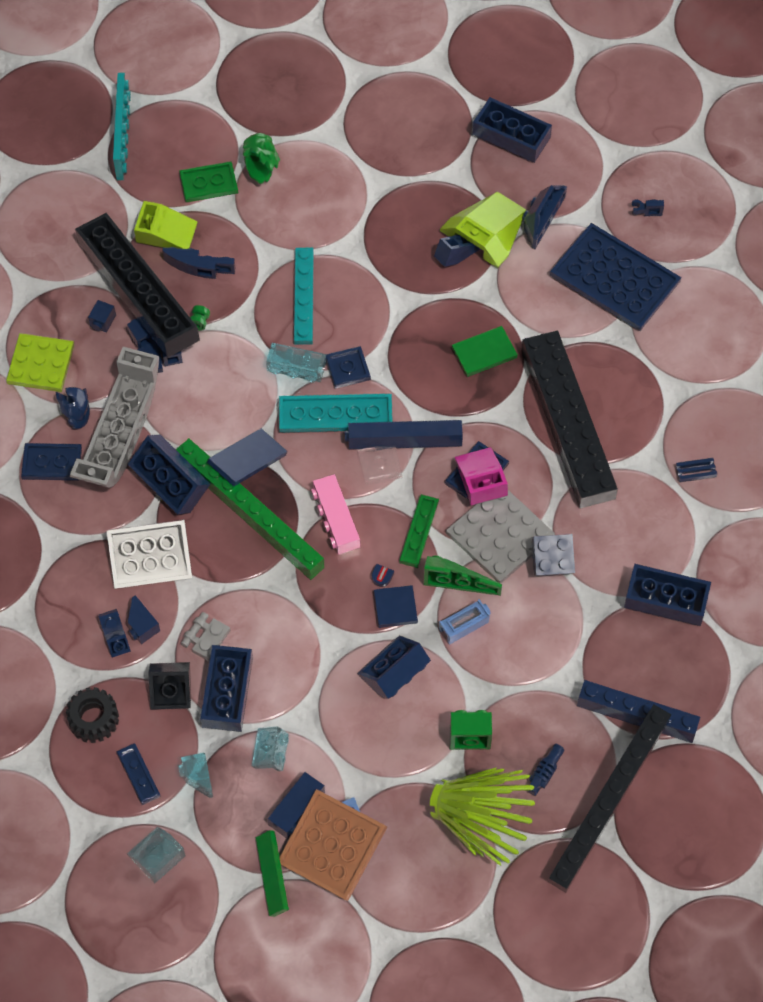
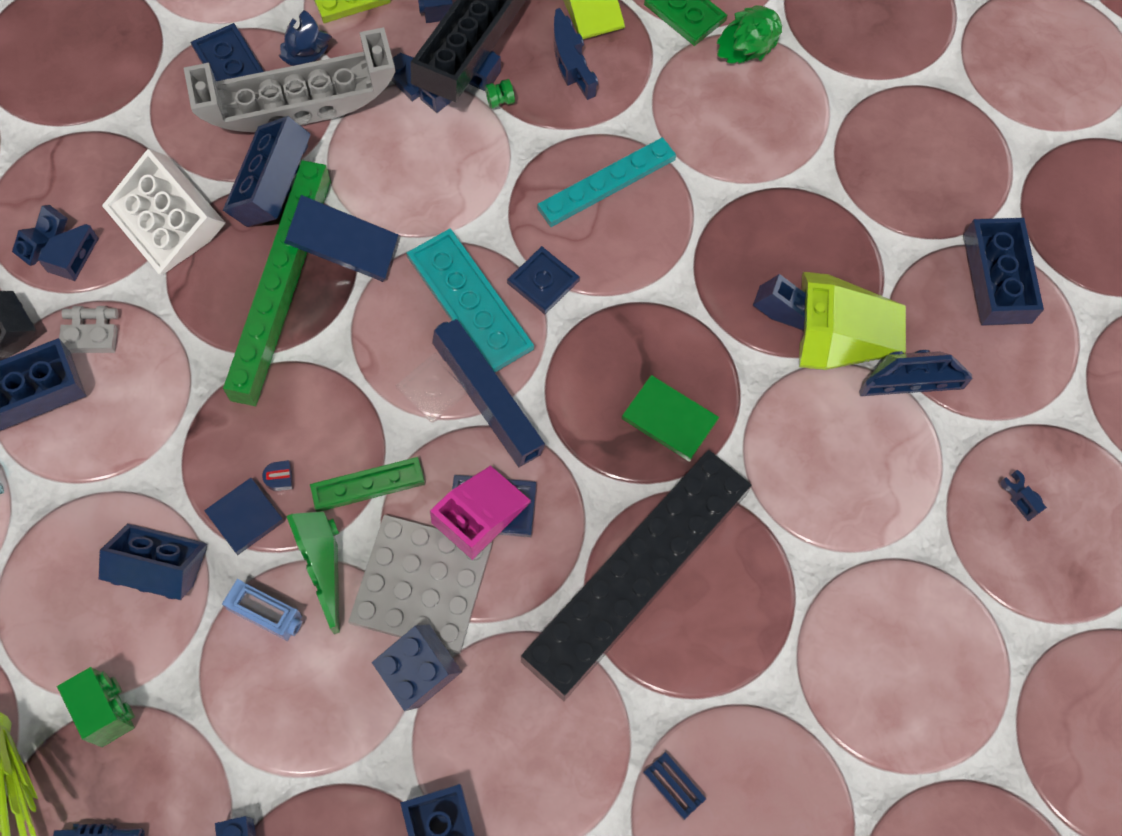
camera: 55 degrees right, 5 degrees up
(296, 362) = (507, 221): clear light blue brick -> none
(336, 514) = (328, 376): bright pink brick -> none
(615, 276) = (891, 515): dark blue plate -> none

